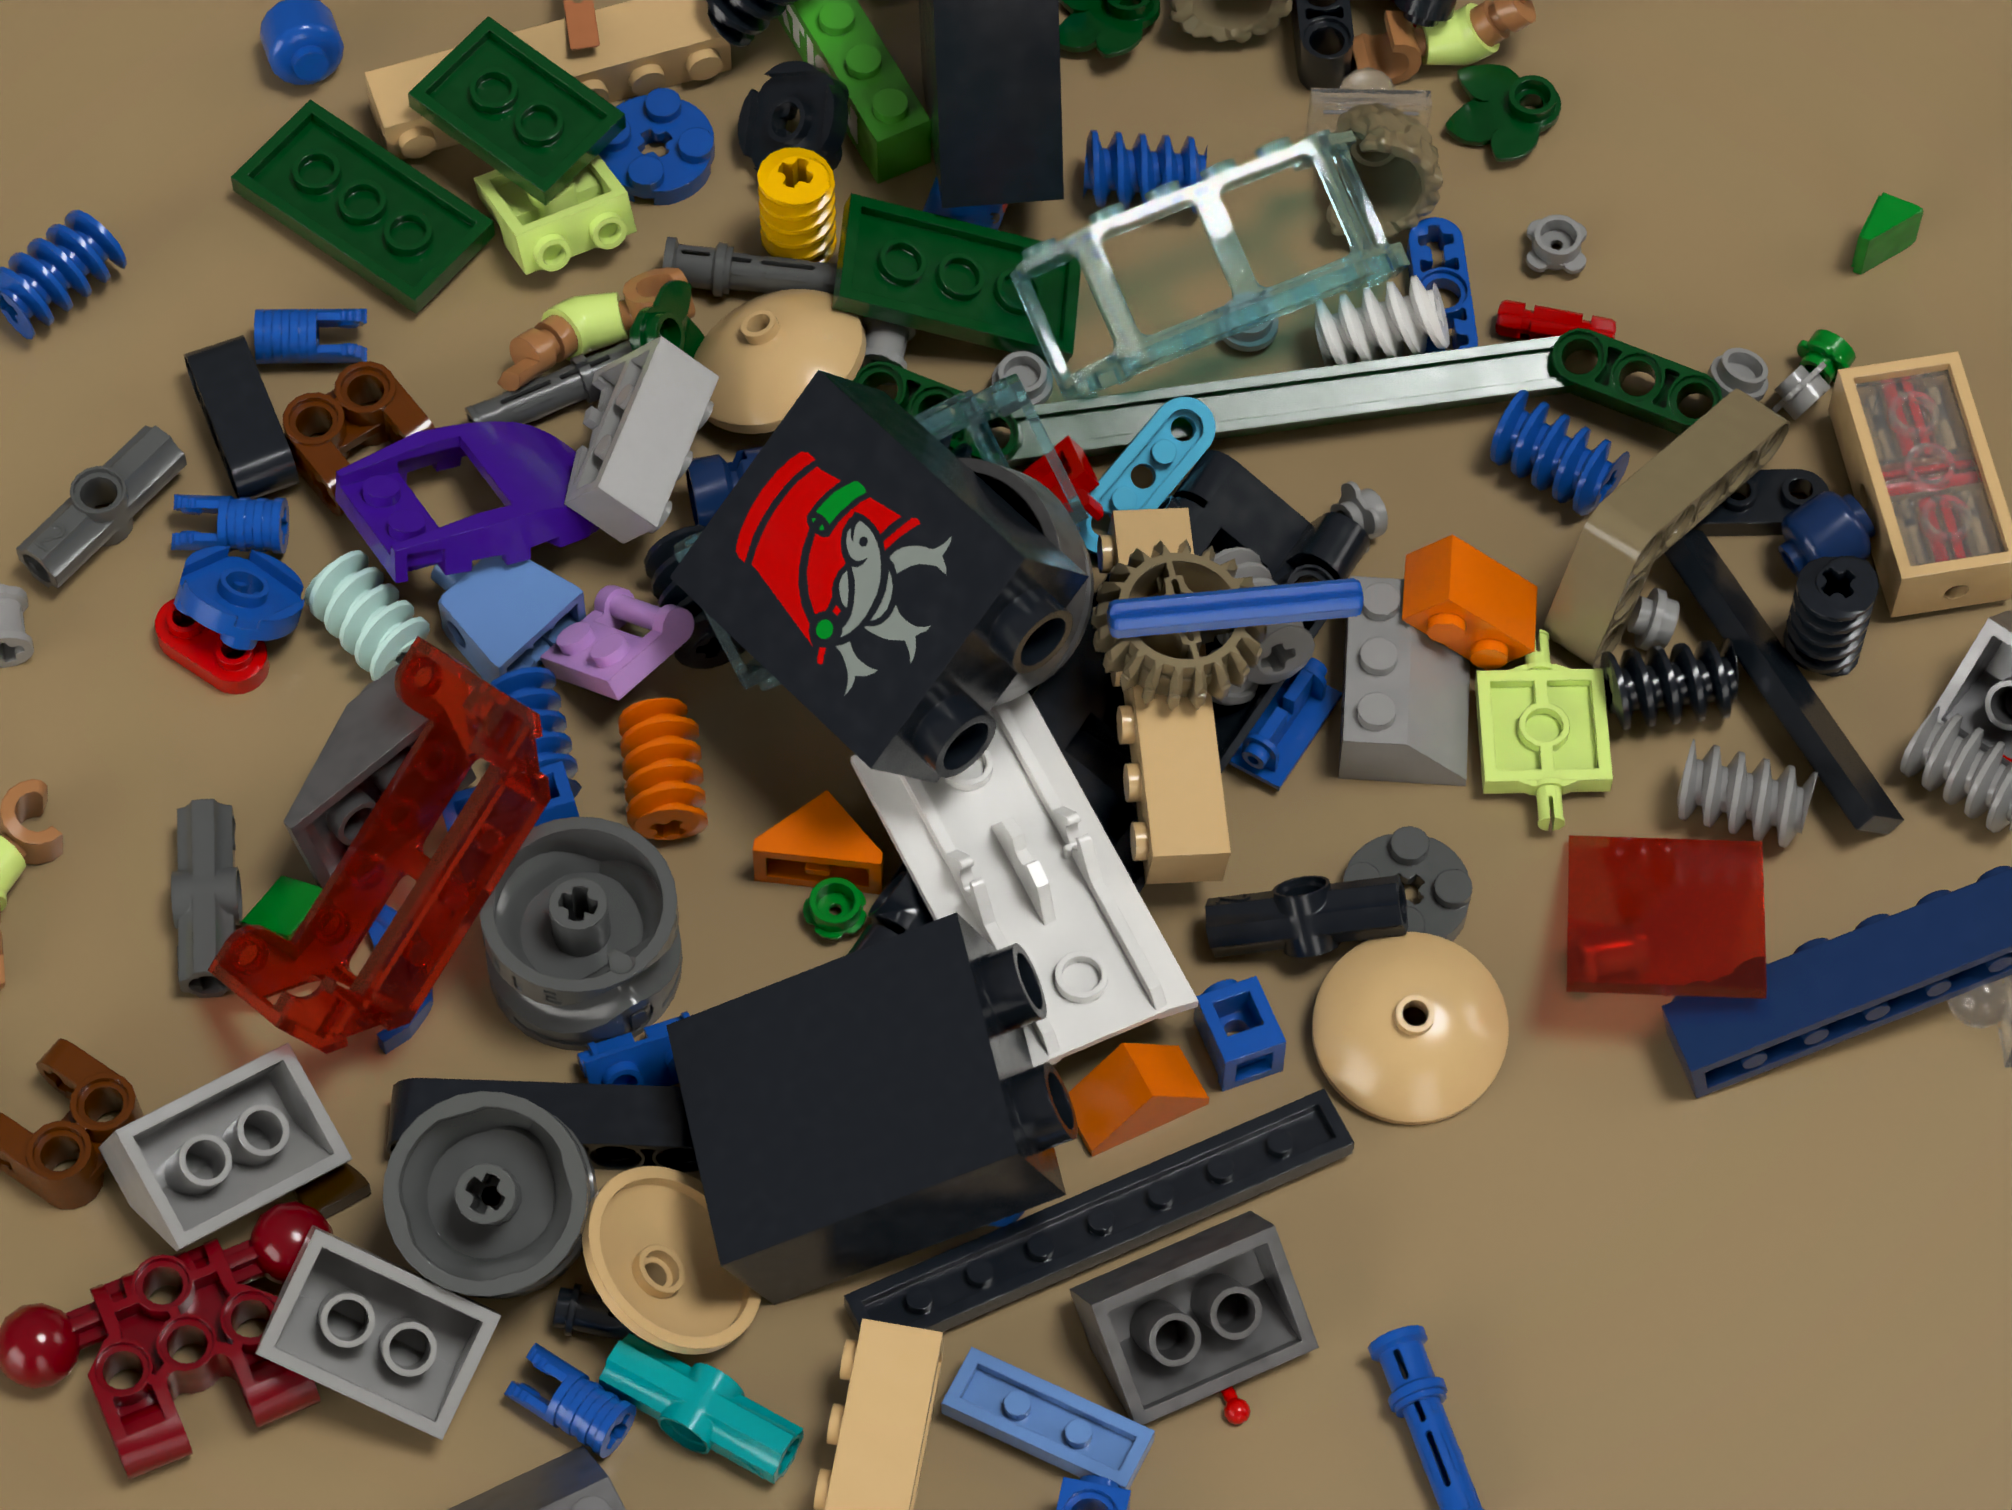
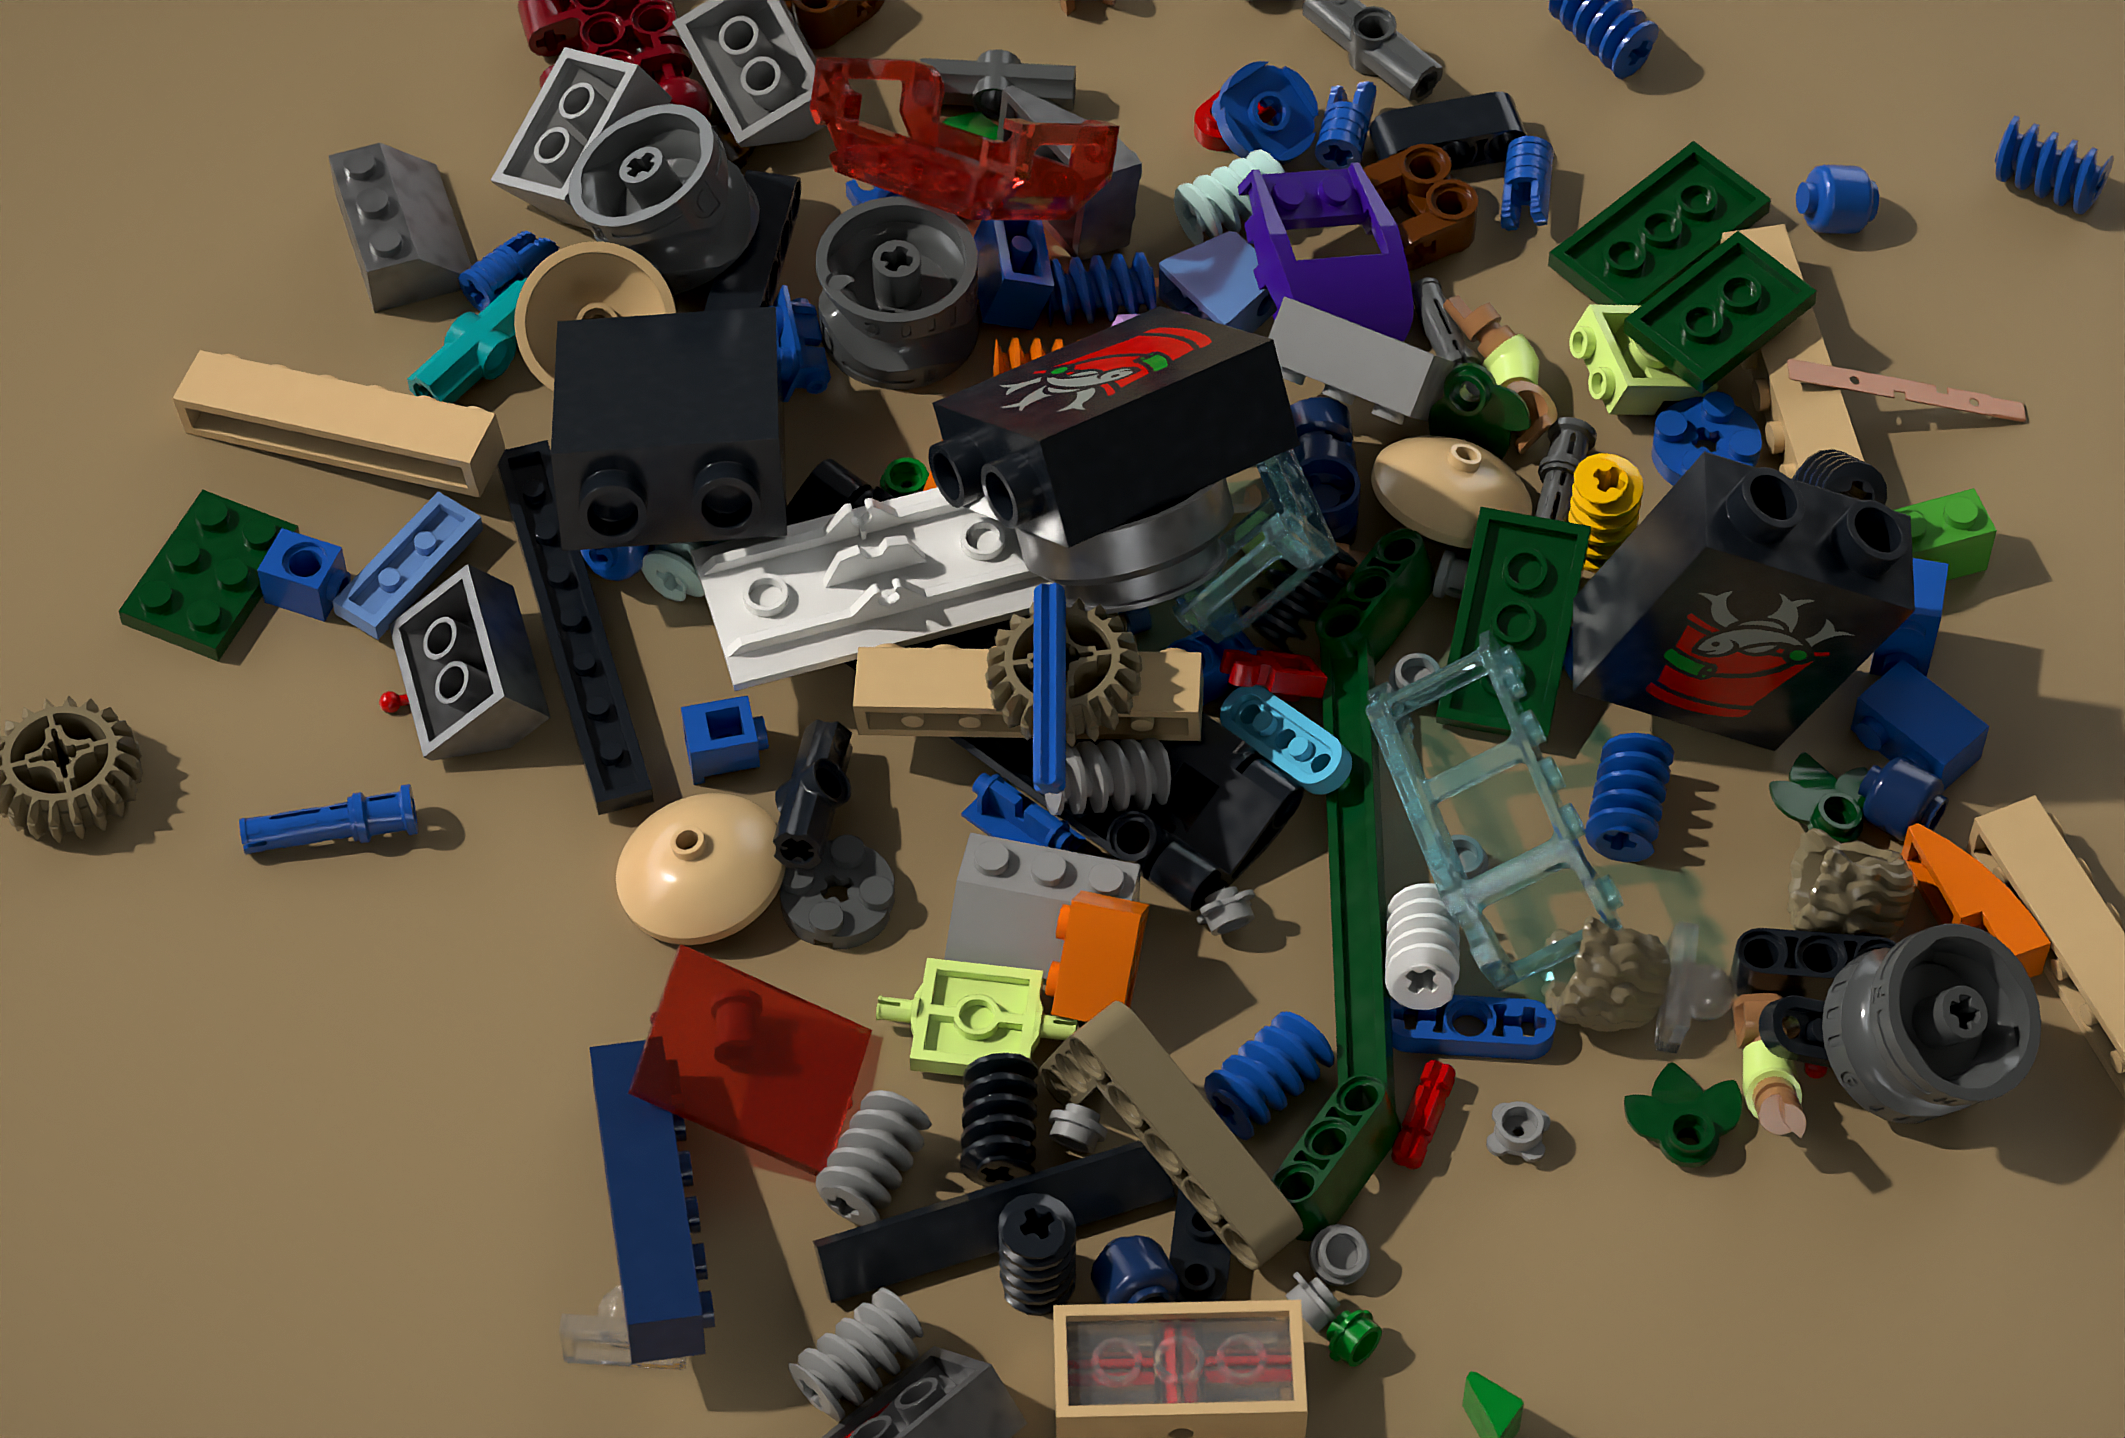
camera: 100 degrees right, 5 degrees down
(1134, 1093) = (686, 666): orange slope -> none

